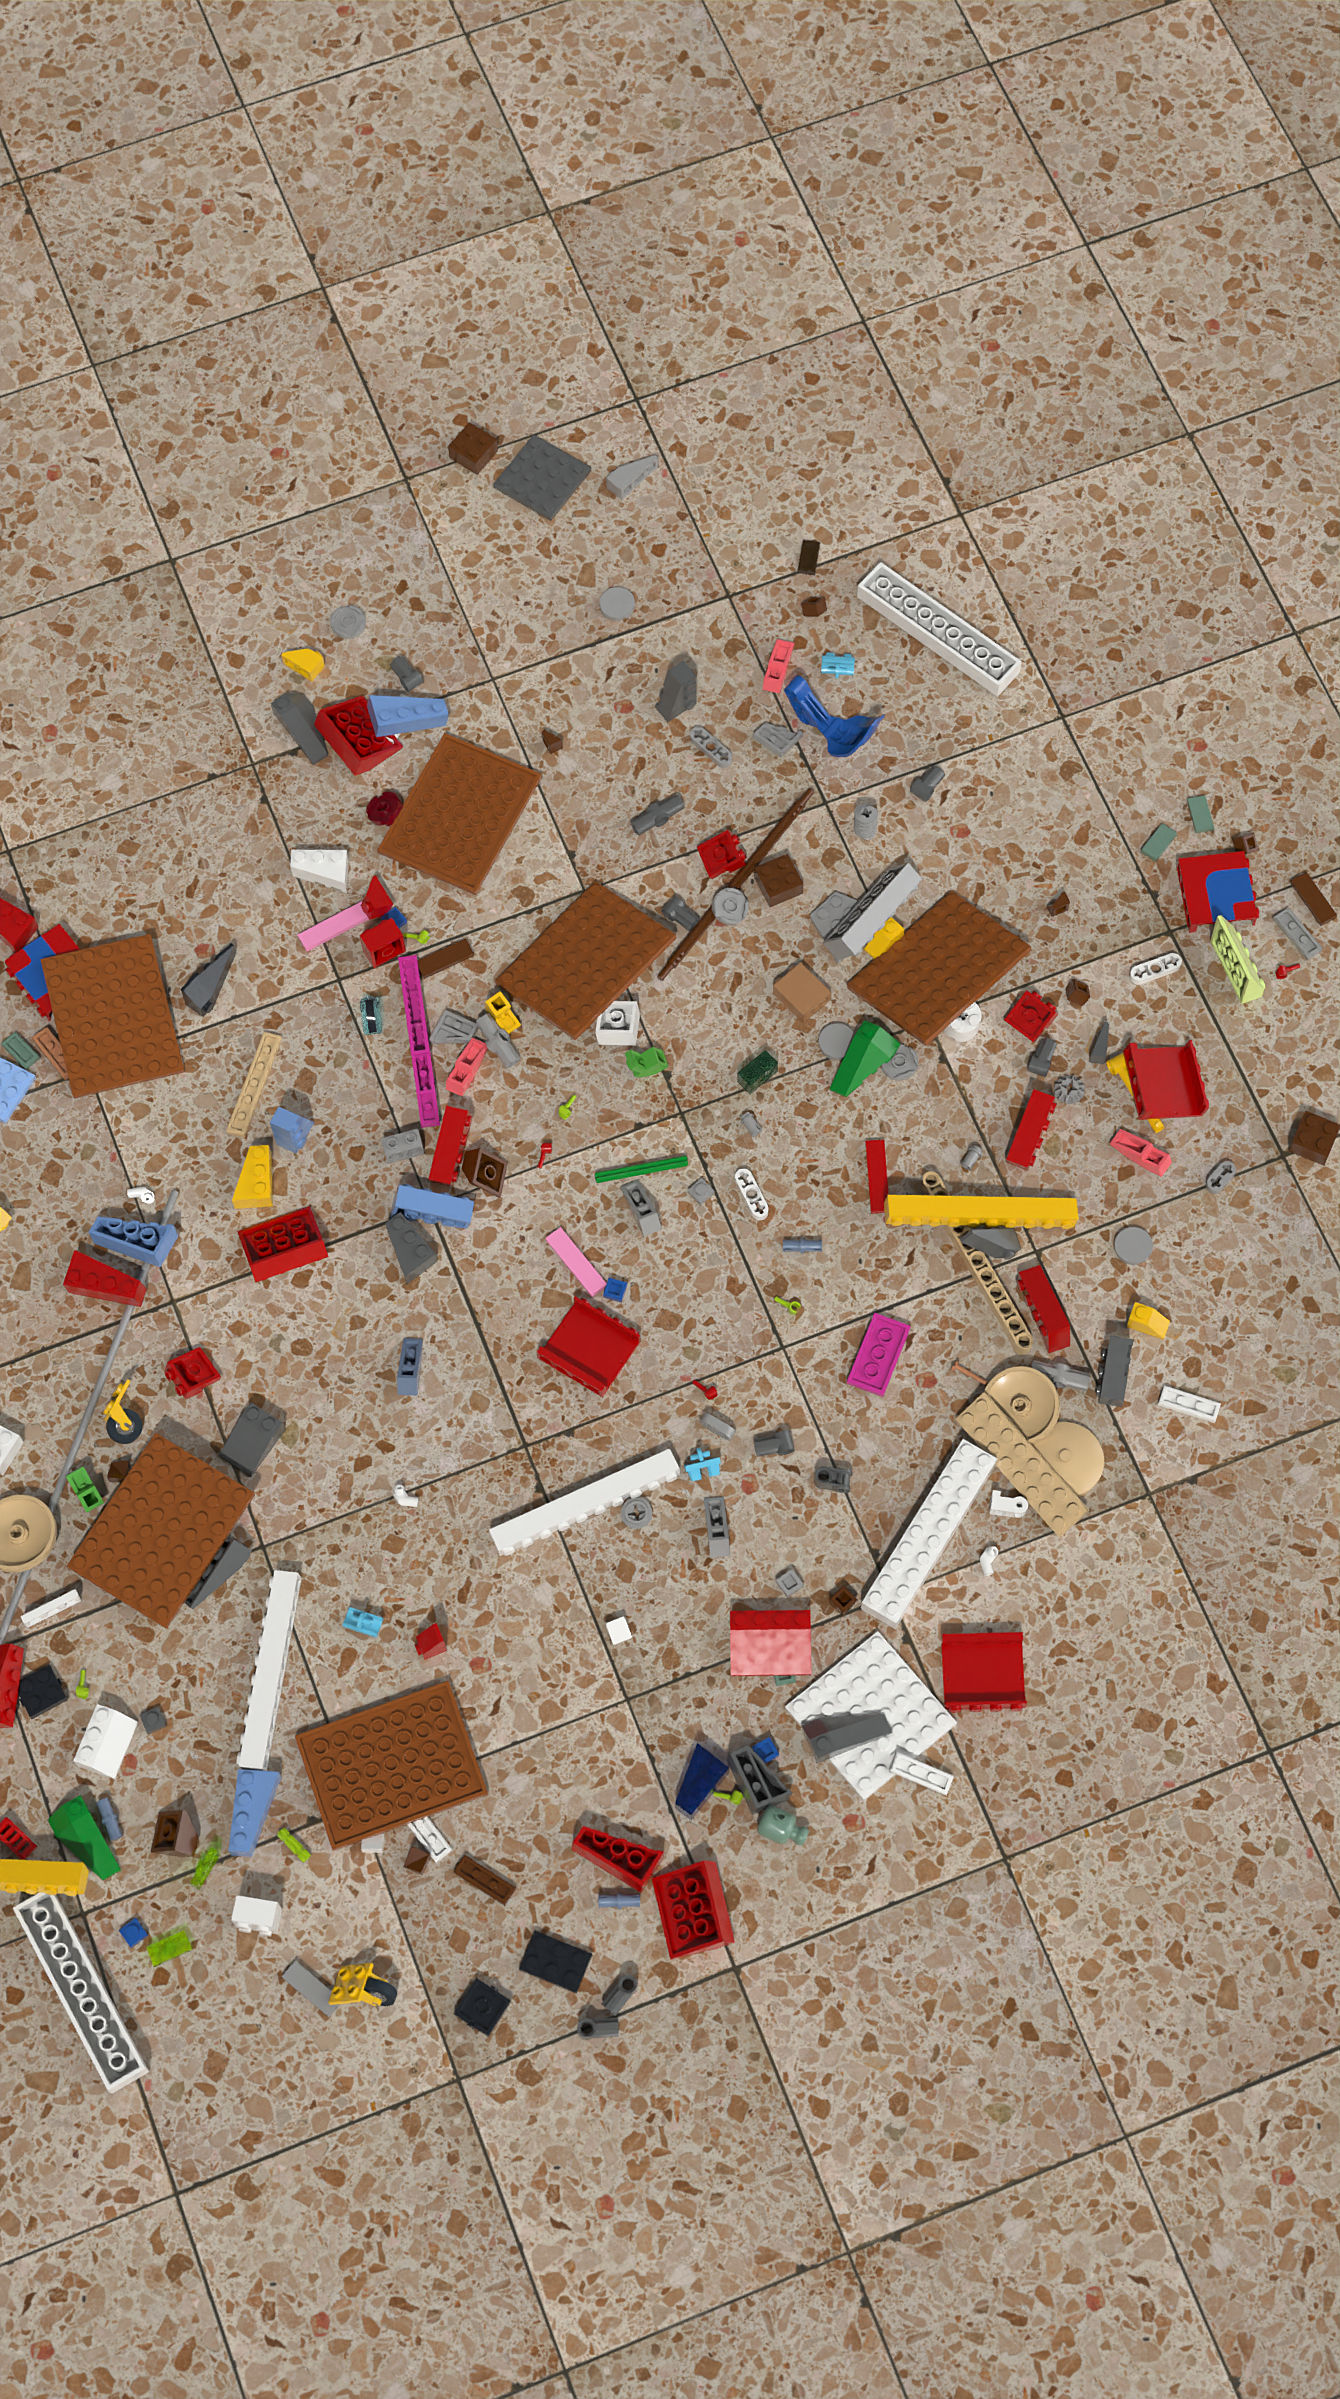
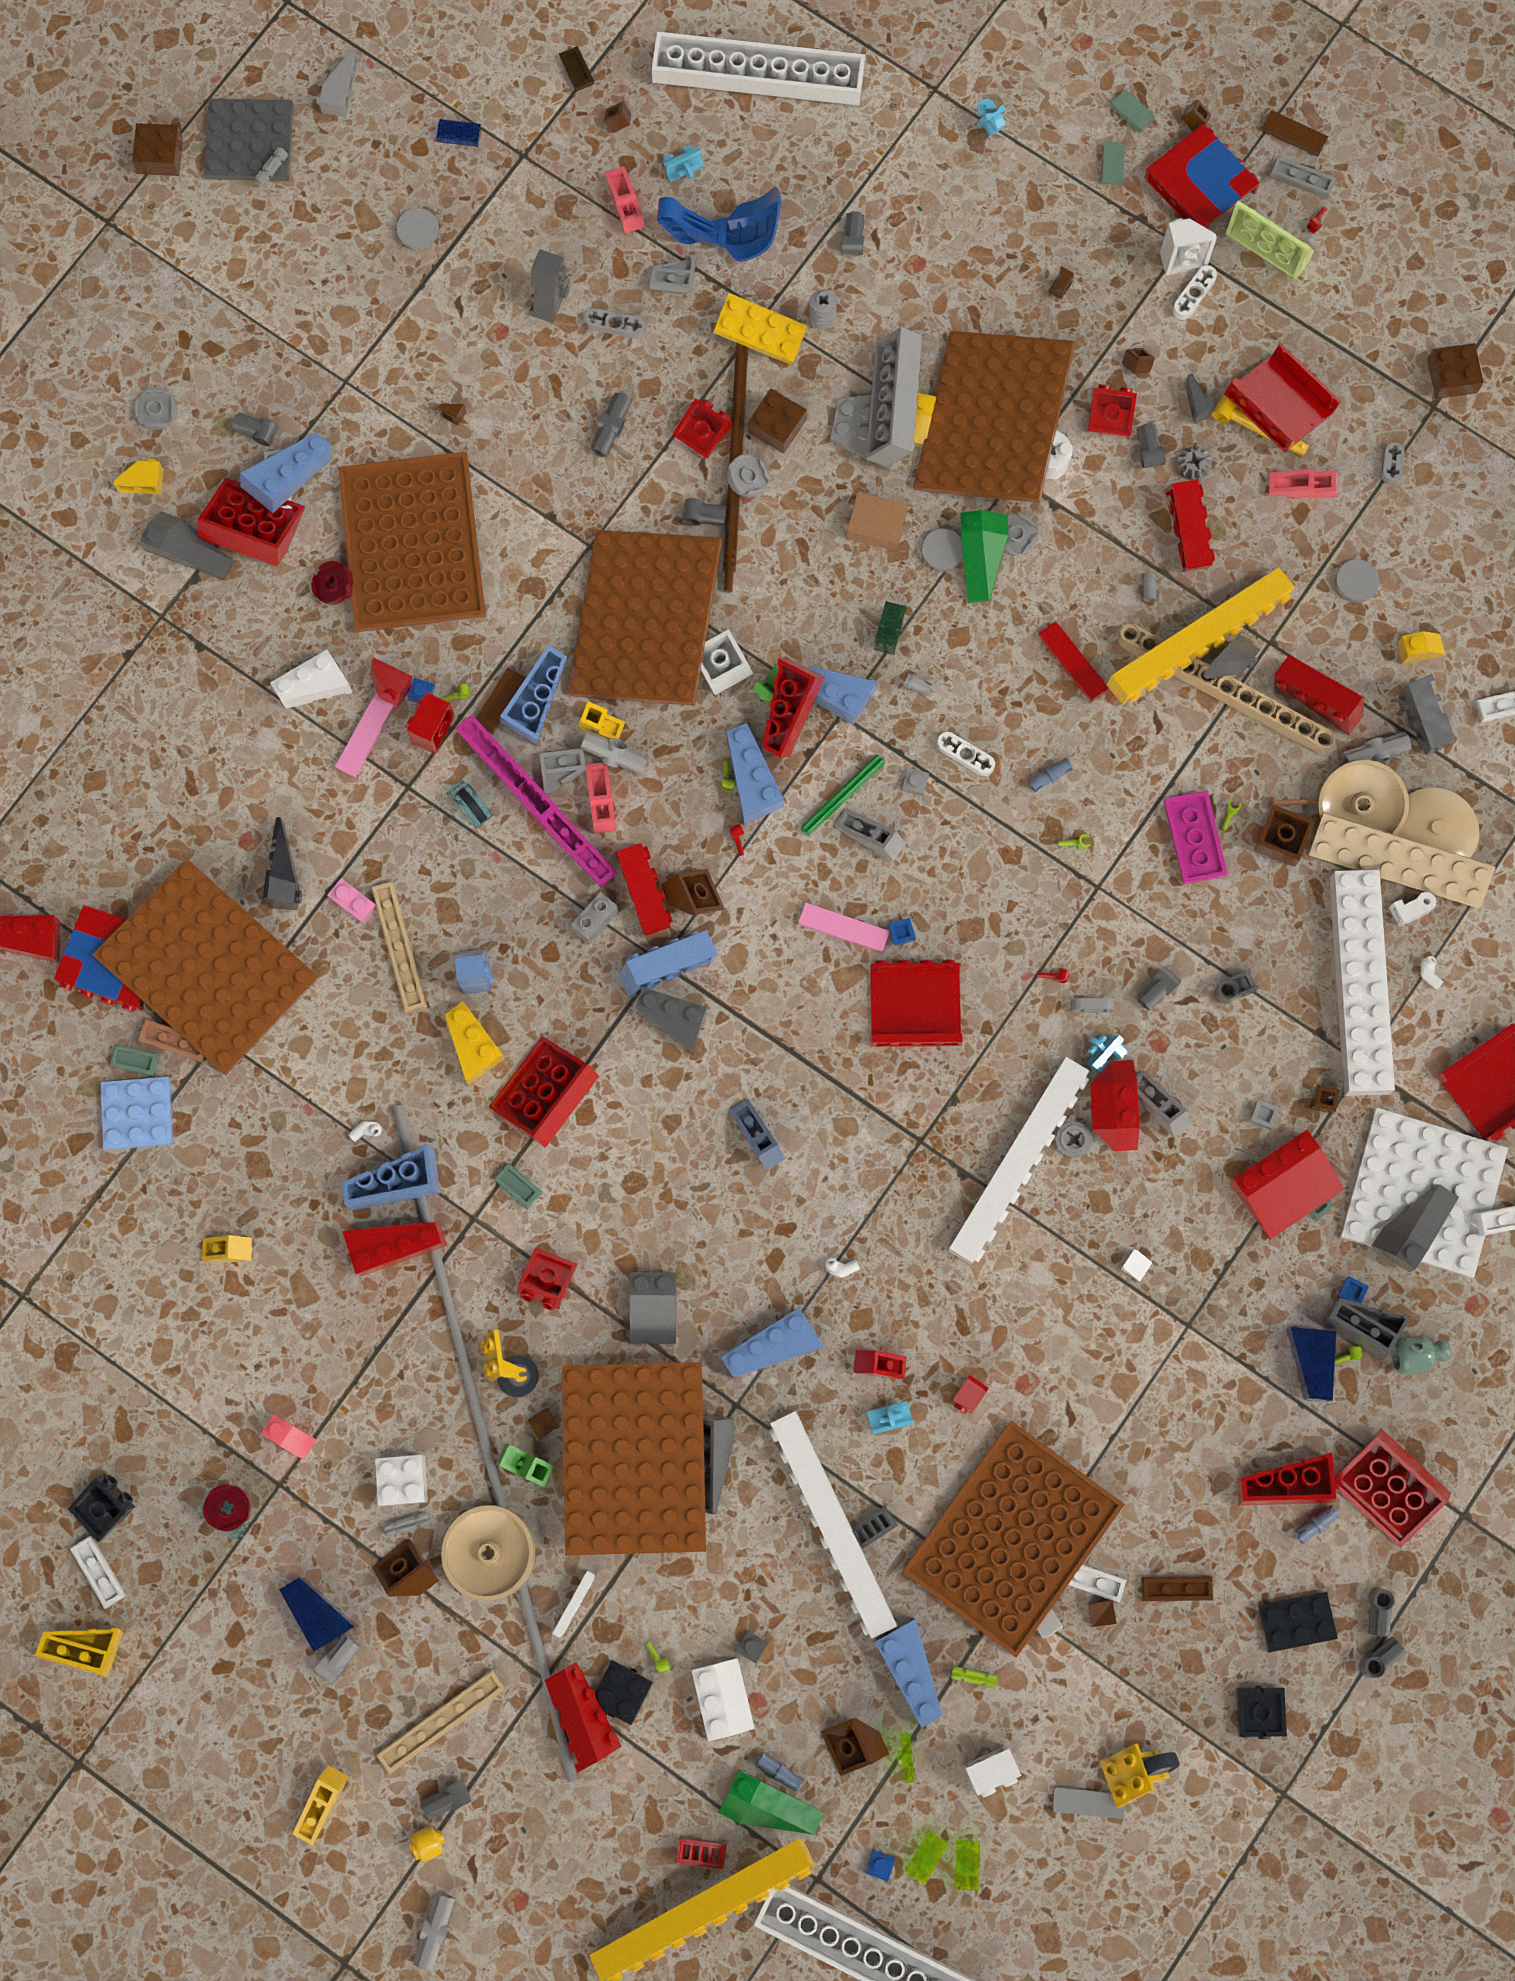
camera: 35 degrees left, 10 degrees up
(194, 1973) = (967, 1865): none -> clear neon green plate
(218, 1298) = (517, 1186): none -> sand green tile
(244, 1033) = (352, 900): none -> bright pink plate
(311, 1700) = (888, 1517): none -> dark grey slope
(317, 1519) = (778, 1343): none -> medium blue wedge
(383, 1581) = (879, 1364): none -> red slope
(469, 968) = (533, 700): none -> medium blue wedge
(543, 503) = (271, 166): none -> light grey axle
(583, 1117) = (753, 779): none -> medium blue wedge
(642, 1081) = (791, 704): none -> red wedge
(682, 1506) = (1116, 1105): none -> red wedge
(687, 1094) = (844, 694): none -> medium blue wedge
(693, 554) = (458, 133): none -> clear blue plate
(811, 810) = (760, 329): none -> yellow plate
(919, 1353) = (1230, 812): none -> lime hand
(944, 1392) = (1284, 835): none -> reddish brown brick
(1086, 757) = (991, 118): none -> medium azure hips
(1165, 929) = (1186, 246): none -> white slope

